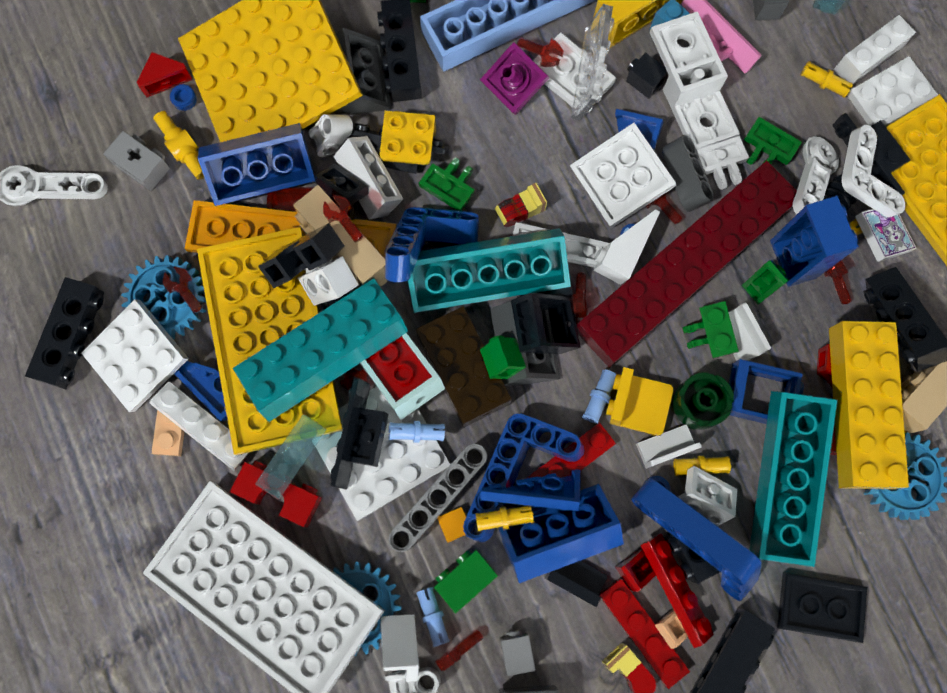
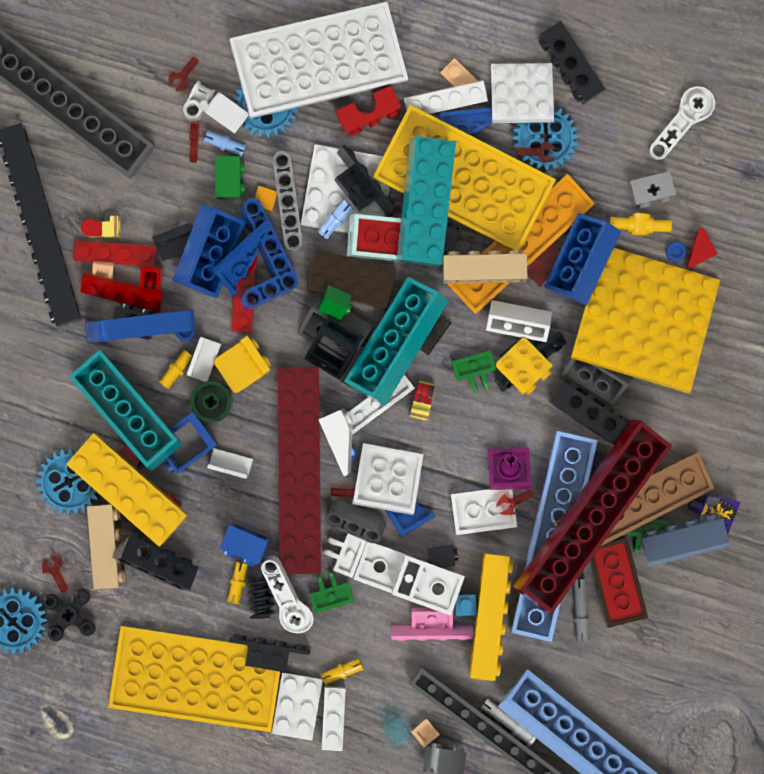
camera: 130 degrees right, 10 degrees up
(291, 456) = (379, 135): clear light blue plate -> none
(306, 252) = (486, 241): black arch -> none
(328, 281) = (464, 237): white brick -> none
(330, 133) = (567, 322): white piece -> none
(339, 182) = (524, 297): black panel -> none
(342, 217) = (491, 275): clear red bar -> none
(424, 225) = (460, 326): blue beam -> none
(504, 518) = (243, 226): yellow pin -> none
(517, 652) = (165, 173): light grey brick -> none
(579, 299) = (331, 382): clear red bar -> none
(592, 63) = (467, 512): clear plate -> none
(600, 397) = (266, 345): light blue pin -> none
(709, 496) = (156, 355): white bracket -> none
(717, 328) = (244, 451): green hinge -> none
(765, 281) = (247, 508): green slope -> none
(822, 607) = (41, 367): black tile -> none
(837, 273) = (216, 555): clear red bar -> none
(858, 178) = (262, 620): white beam -> none
(885, 234) = (215, 610): tile -> none

